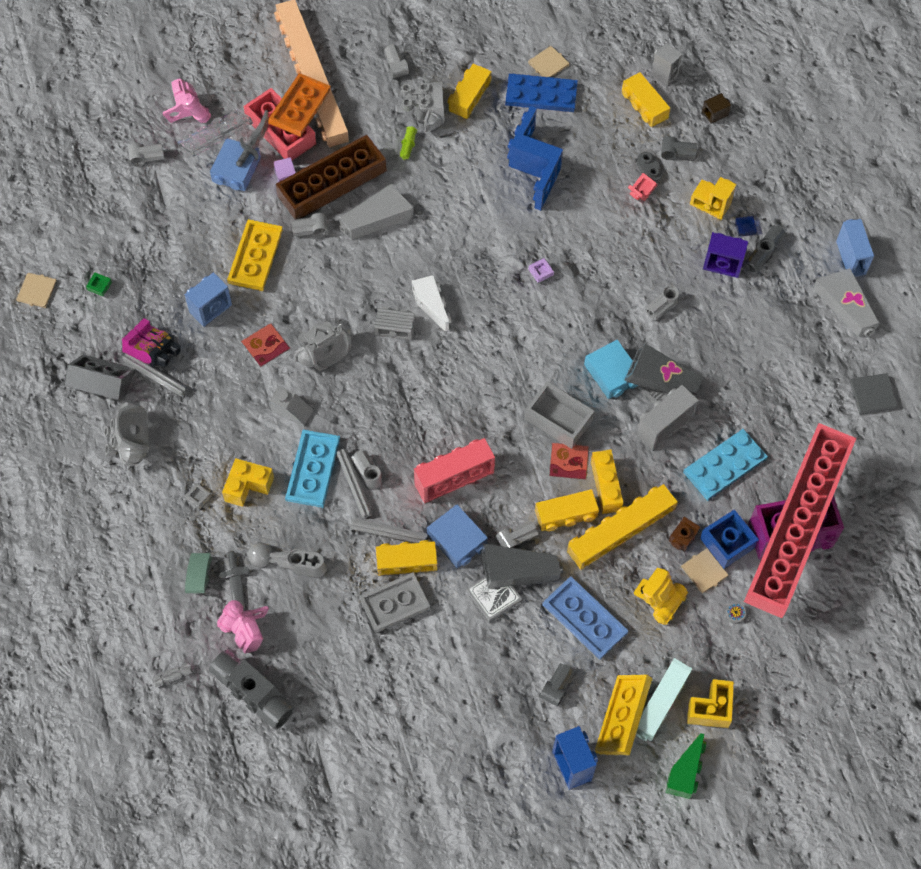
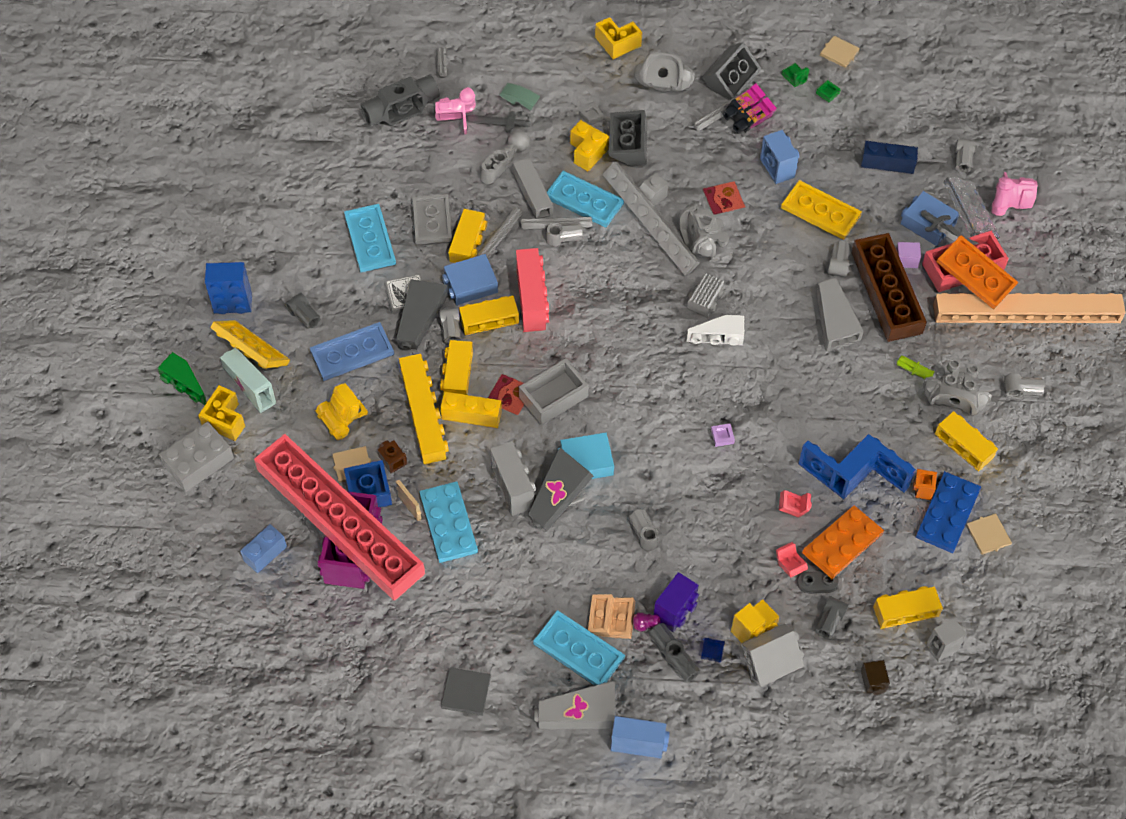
camera: 110 degrees right, 5 degrees down
(83, 319) = (795, 74): none -> green bracket
(90, 498) = (618, 40): none -> yellow brick
(172, 211) = (889, 157): none -> dark blue brick
(225, 442) = (628, 137): none -> dark grey slope
(320, 396) = (651, 218): none -> light grey plate
(320, 517) = (532, 188): none -> light grey brick
(441, 655) = (370, 238): none -> medium azure plate
(492, 504) = (489, 315): none -> yellow brick
(526, 99) = (924, 484): none -> orange brick
(585, 197) = (795, 504): none -> coral bracket
(606, 156) = (843, 541): none -> orange plate
(727, 498) = (408, 500): none -> tan piece
(733, 169) = (773, 654): none -> light grey brick
(748, 276) = (645, 621): none -> magenta piece
(753, 306) = (611, 616): none -> light nougat slope
(767, 712) = (196, 456): none -> light grey piece
(796, 320) = (578, 649): none -> medium azure plate
(831, 607) = (263, 548): none -> medium blue brick

